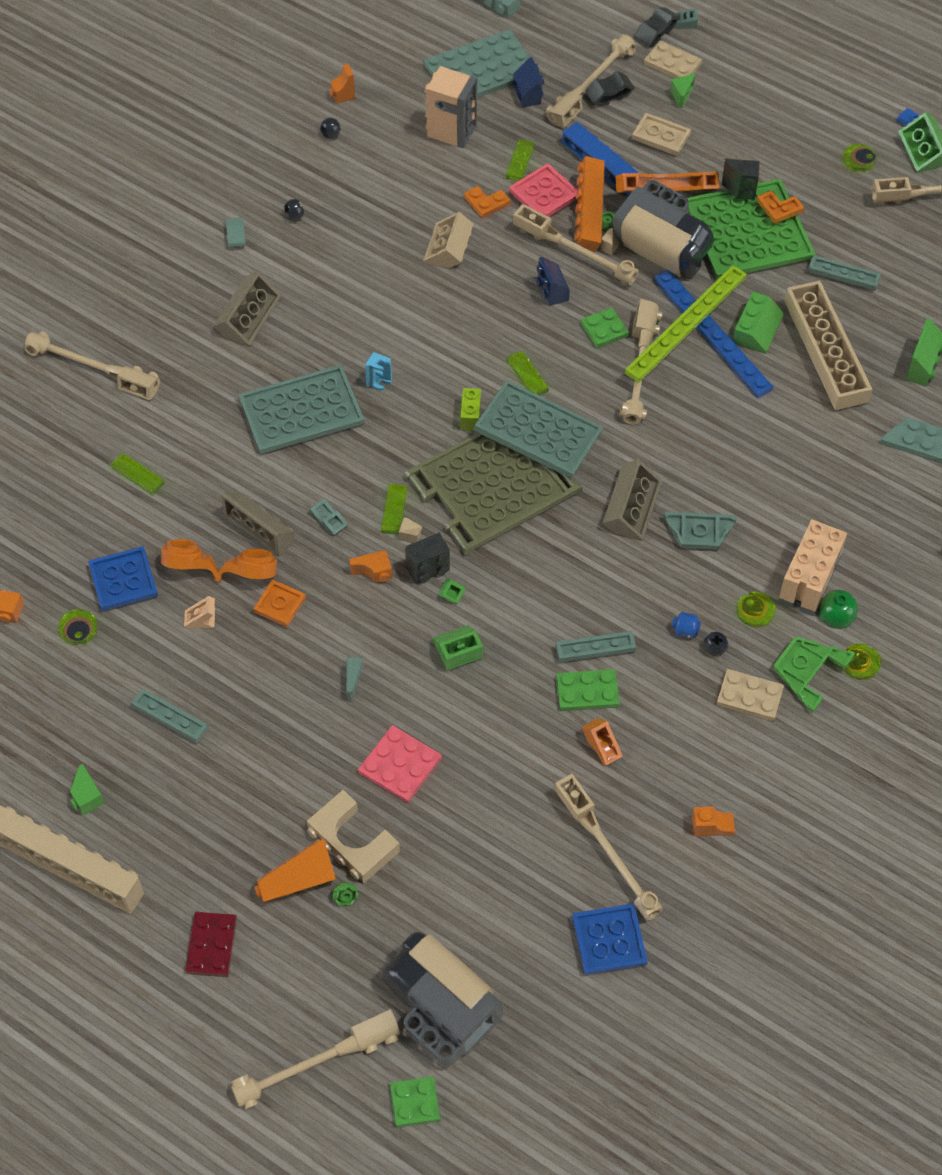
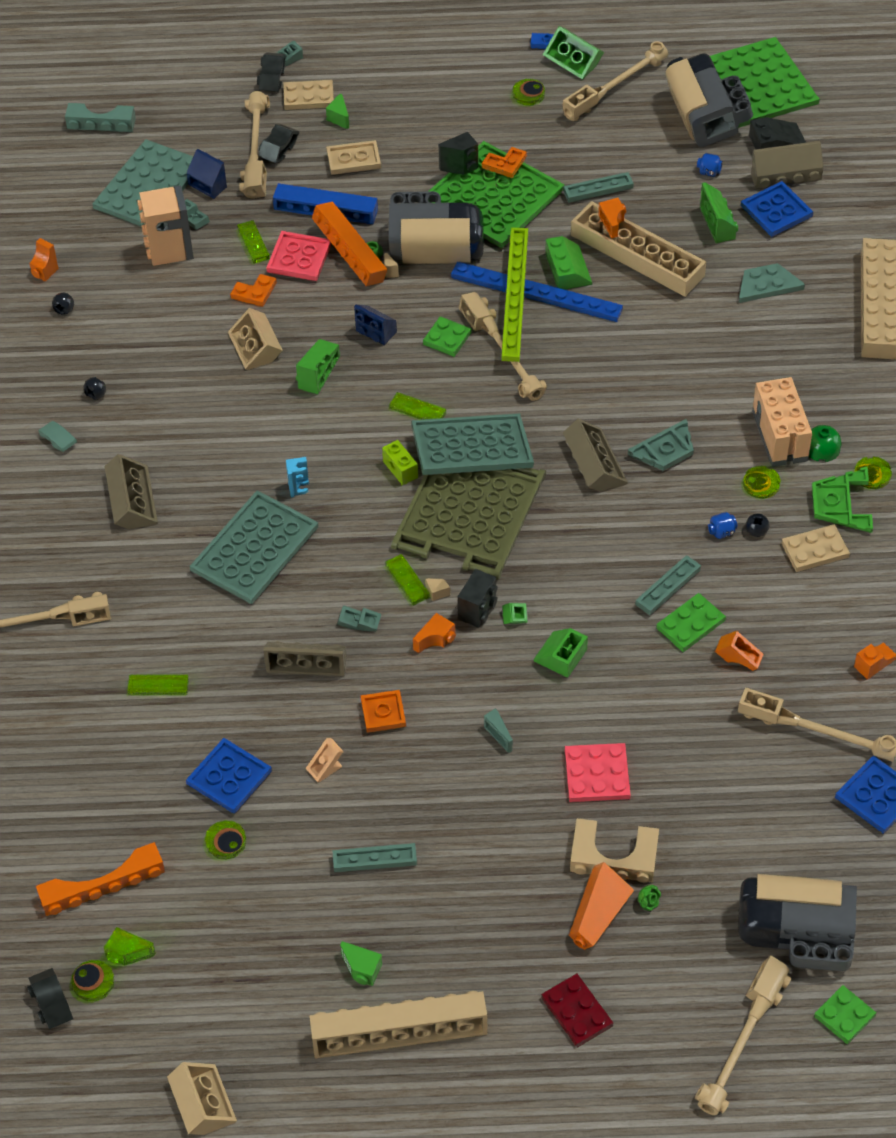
camera: 35 degrees left, 5 degrees down
(251, 563) = (273, 720): orange piece -> none
(476, 290) = (317, 366): none -> bright green wedge
(492, 110) = (195, 217): none -> sand green slope
(540, 226) = (323, 284): tan bar -> none
(678, 182) = (412, 183): orange arch -> none
(823, 302) = (611, 214): none -> orange arch

